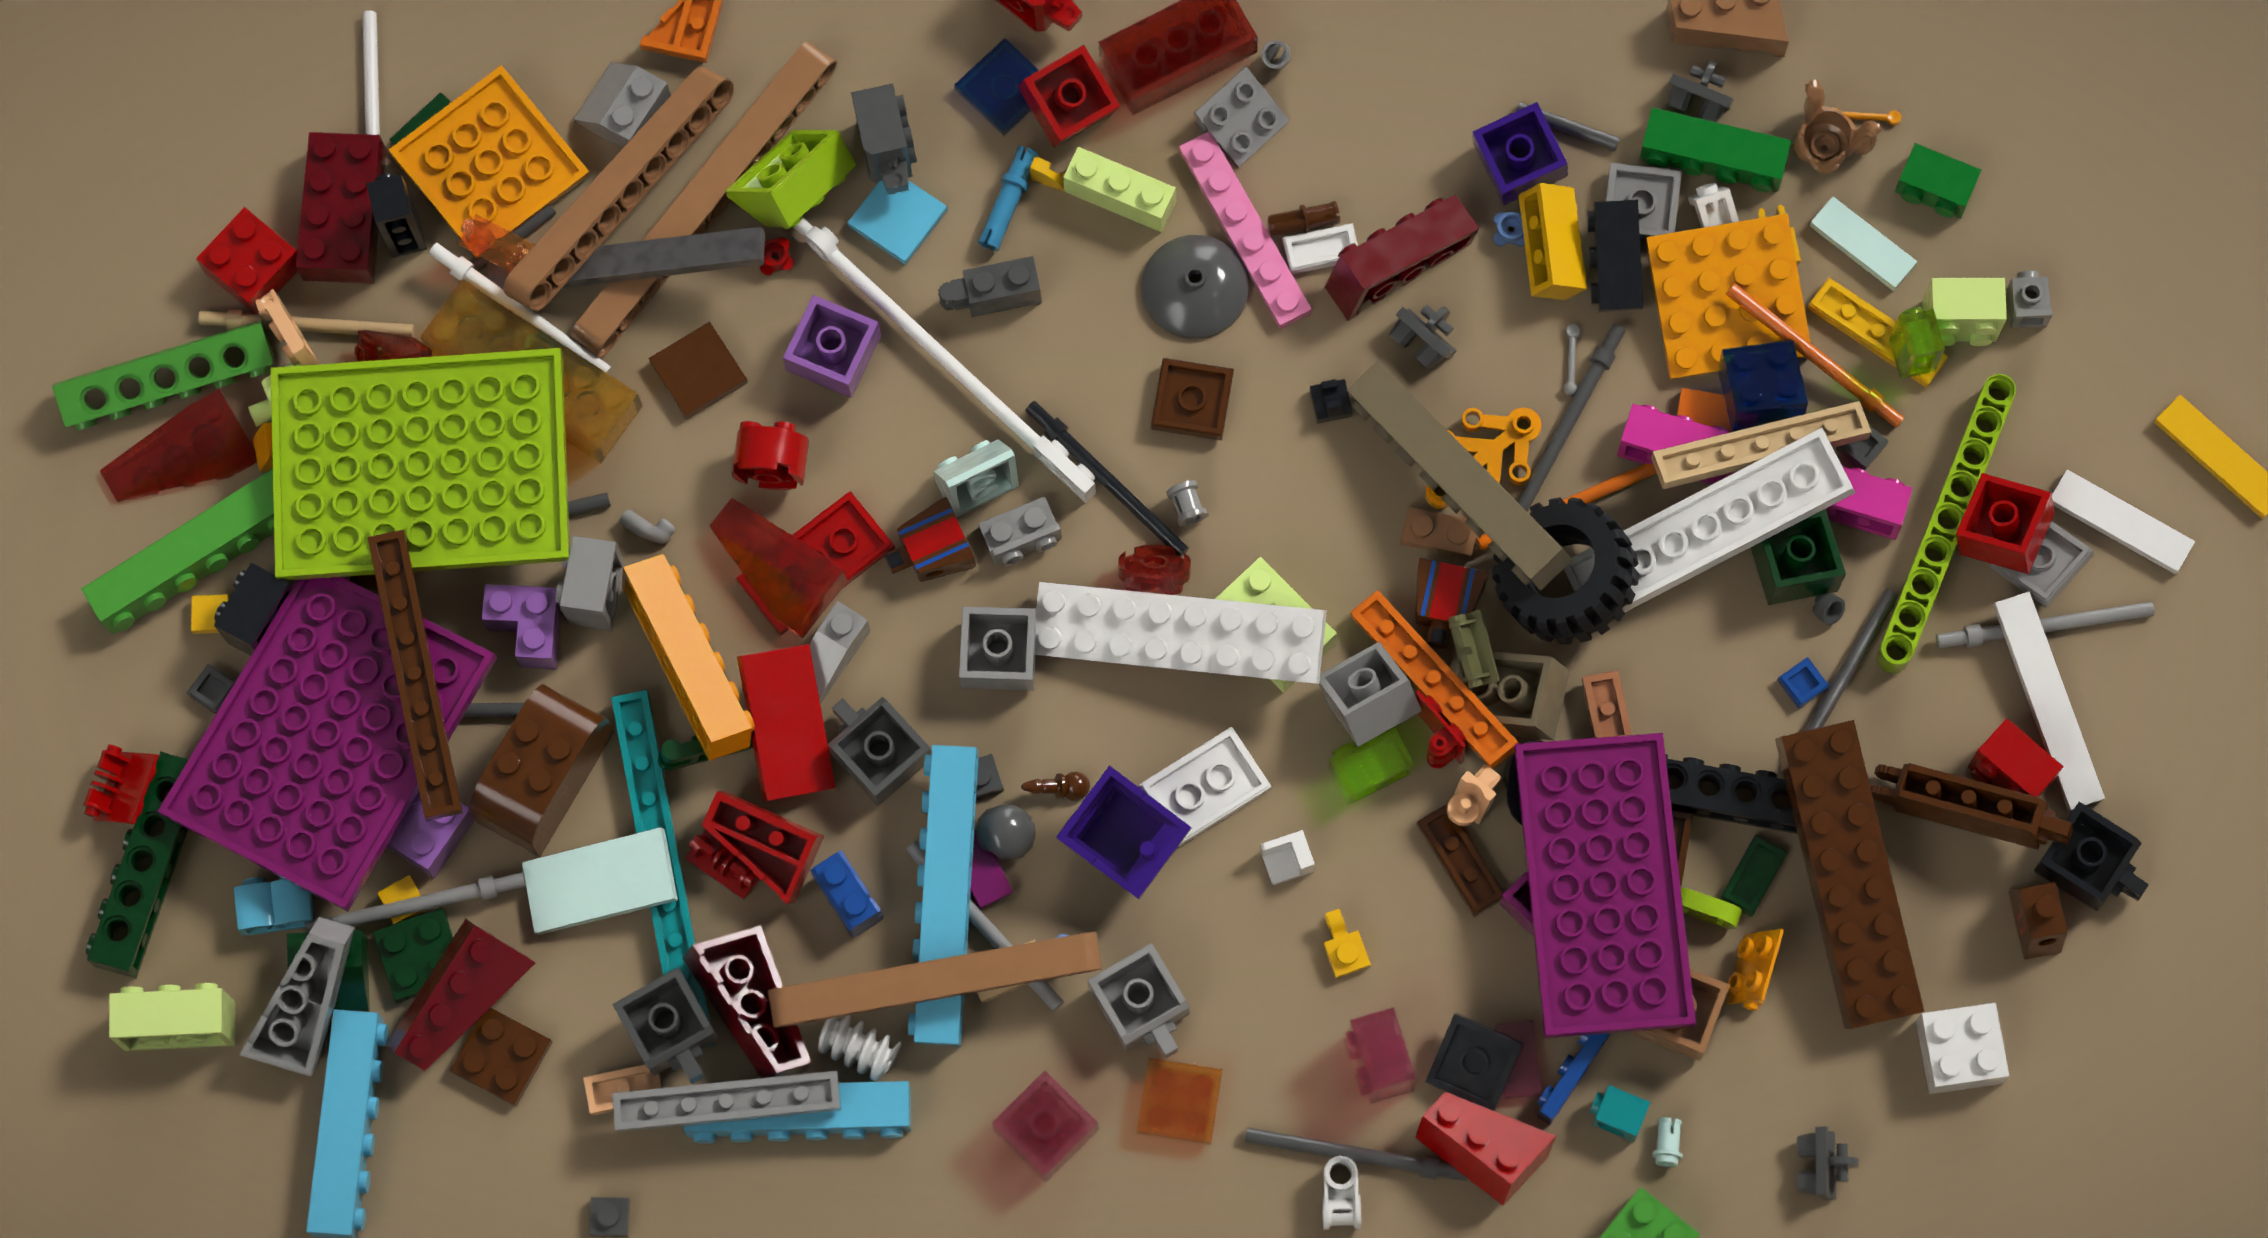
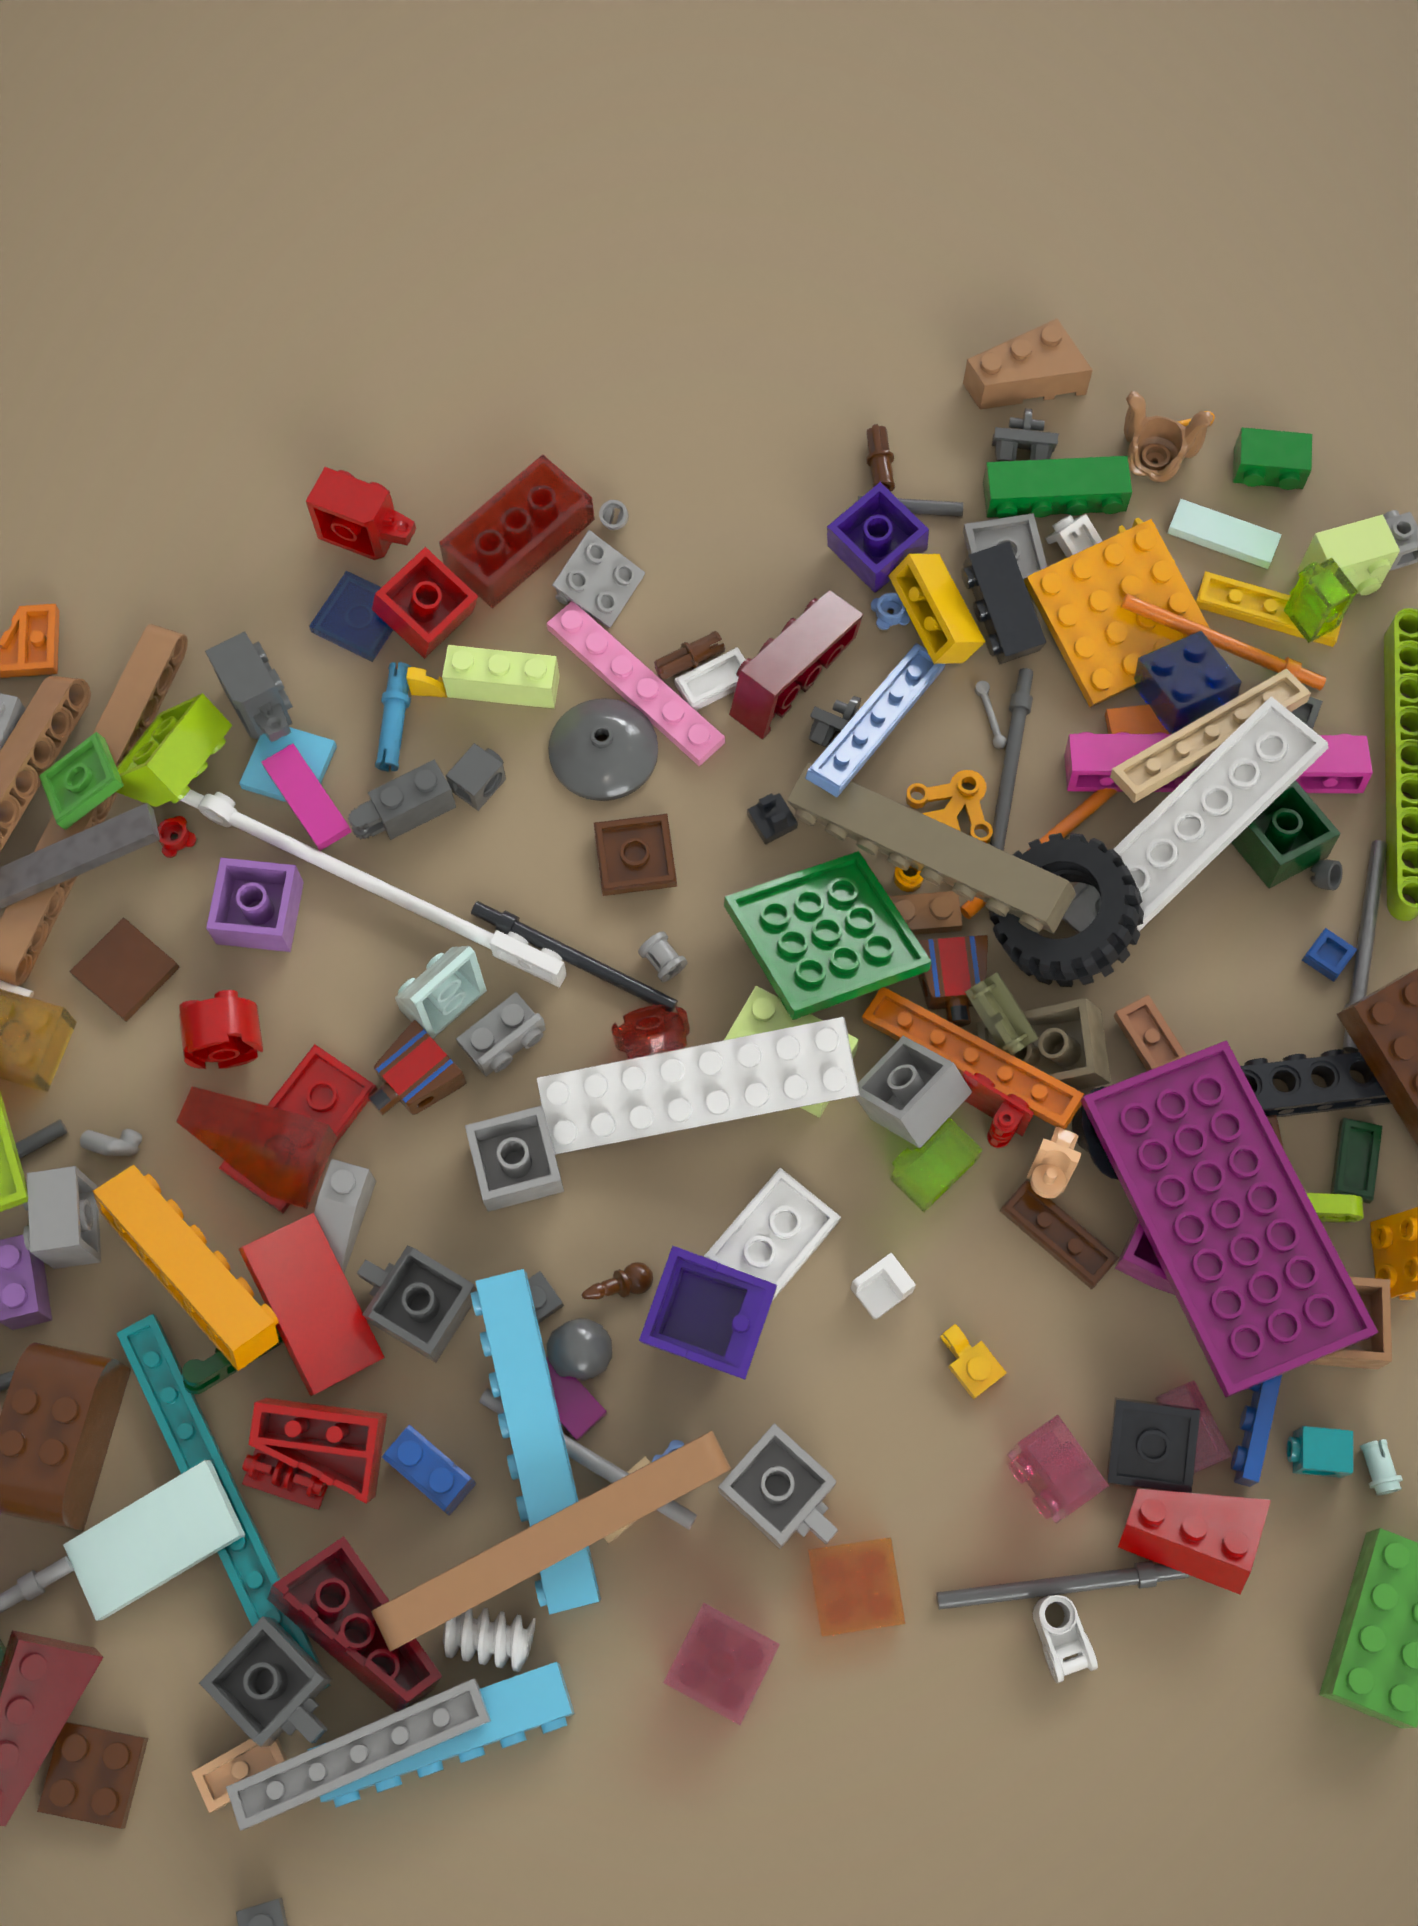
camera: 20 degrees left, 5 degrees down
(705, 183) = (81, 780): none -> bright green tile
(905, 255) = (306, 797): none -> dark pink tile
(1069, 280) = (477, 776): none -> dark grey brick
(1340, 527) = (826, 934): none -> green plate
(1453, 338) = (874, 721): none -> tile
(1554, 69) = (880, 457): none -> reddish brown axle

